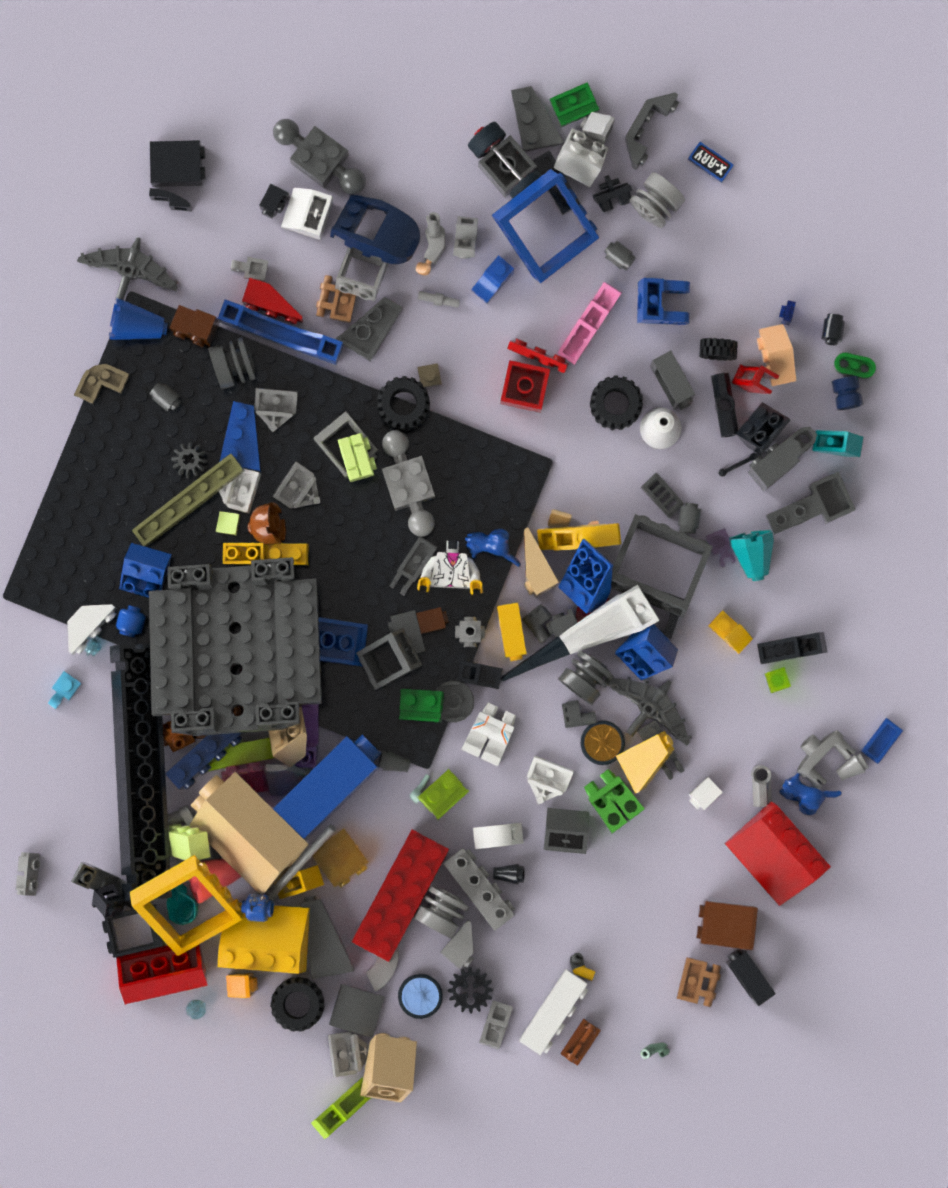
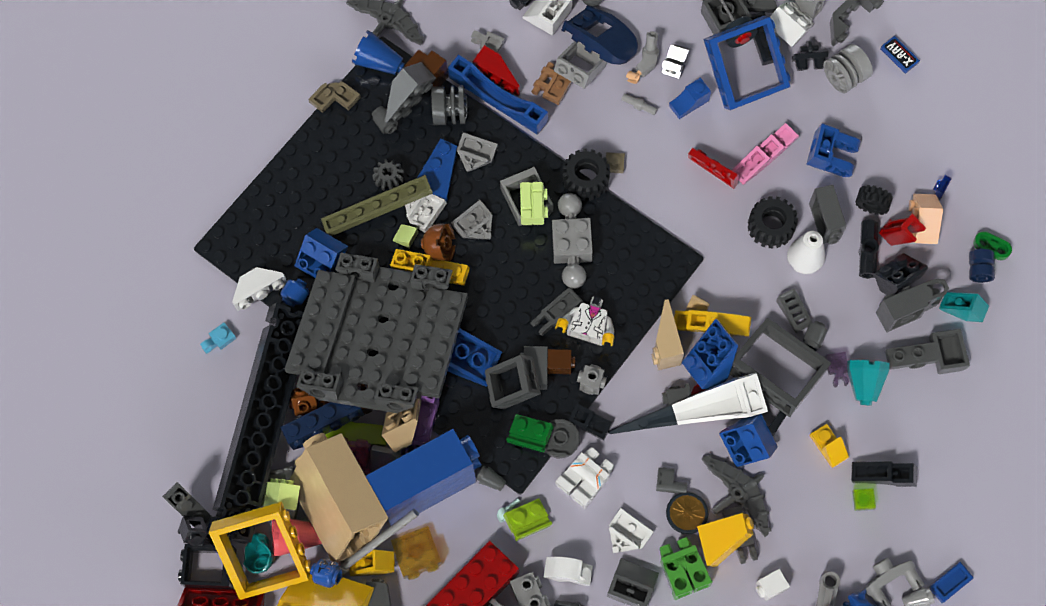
camera: 20 degrees right, 15 degrees down
(29, 864) = (129, 497): light grey hinge -> none
(93, 647) = (255, 309): clear light blue plate -> none
(186, 363) = (407, 90): none -> dark grey slope
(371, 329) = (573, 115): dark grey wing -> none
(495, 543) = (635, 310): blue animal -> none
(511, 631) = (629, 389): yellow slope -> none
(525, 386) = (695, 188): red brick -> none
(535, 620) = (653, 388): dark grey piece -> none
(586, 677) = (687, 447): dark grey wheel -> none
(619, 255) = (804, 106): dark grey brick -> none
(722, 472) = (853, 306): black hinge -> none
(833, 329) = (979, 210): black brick -> none

